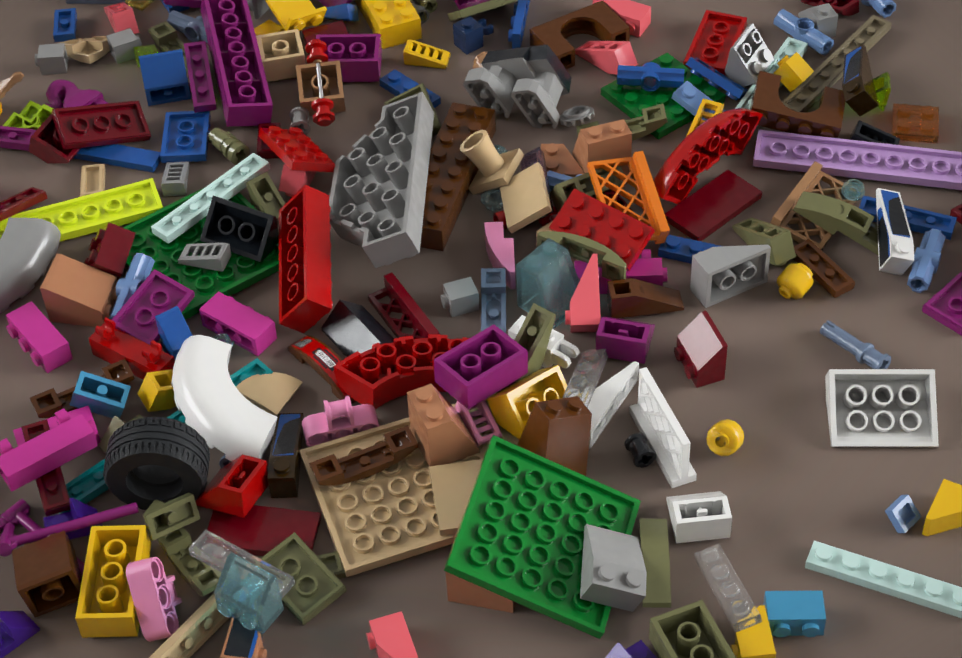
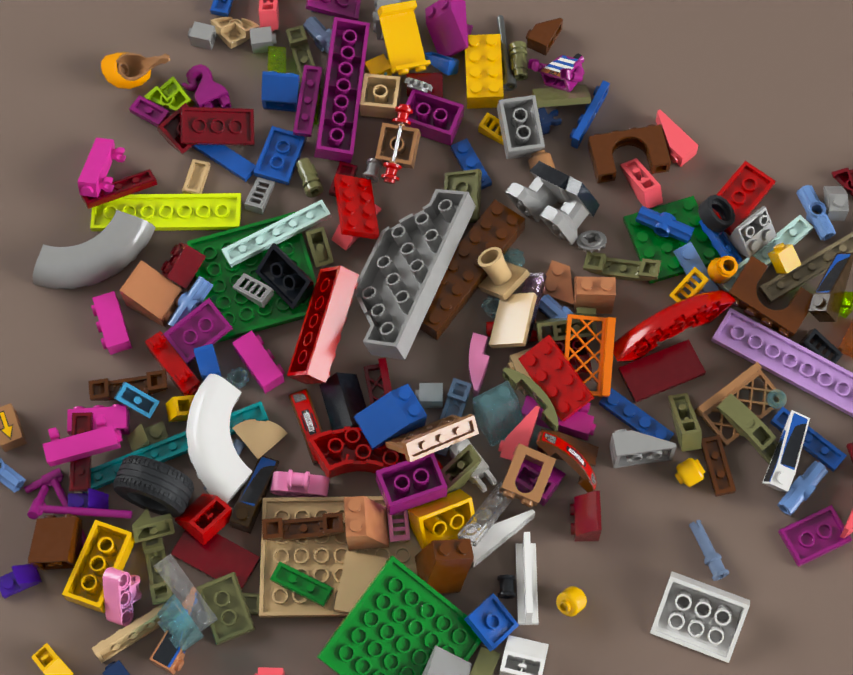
camera: 20 degrees right, 20 degrees up
(319, 28) = (418, 85): none -> light grey gear
(387, 519) = (302, 584): none -> green tile
(427, 316) = (391, 416): none -> blue slope
(450, 37) = (520, 126): none -> light grey slope
(490, 311) = (434, 436): none -> medium nougat fence
(618, 307) = (509, 488): none -> medium nougat panel
(630, 284) = (552, 443): none -> slope
(640, 485) = (491, 622): none -> blue plate
(702, 50) = (710, 219): none -> black tyre
(735, 89) = (718, 273): none -> light orange plant

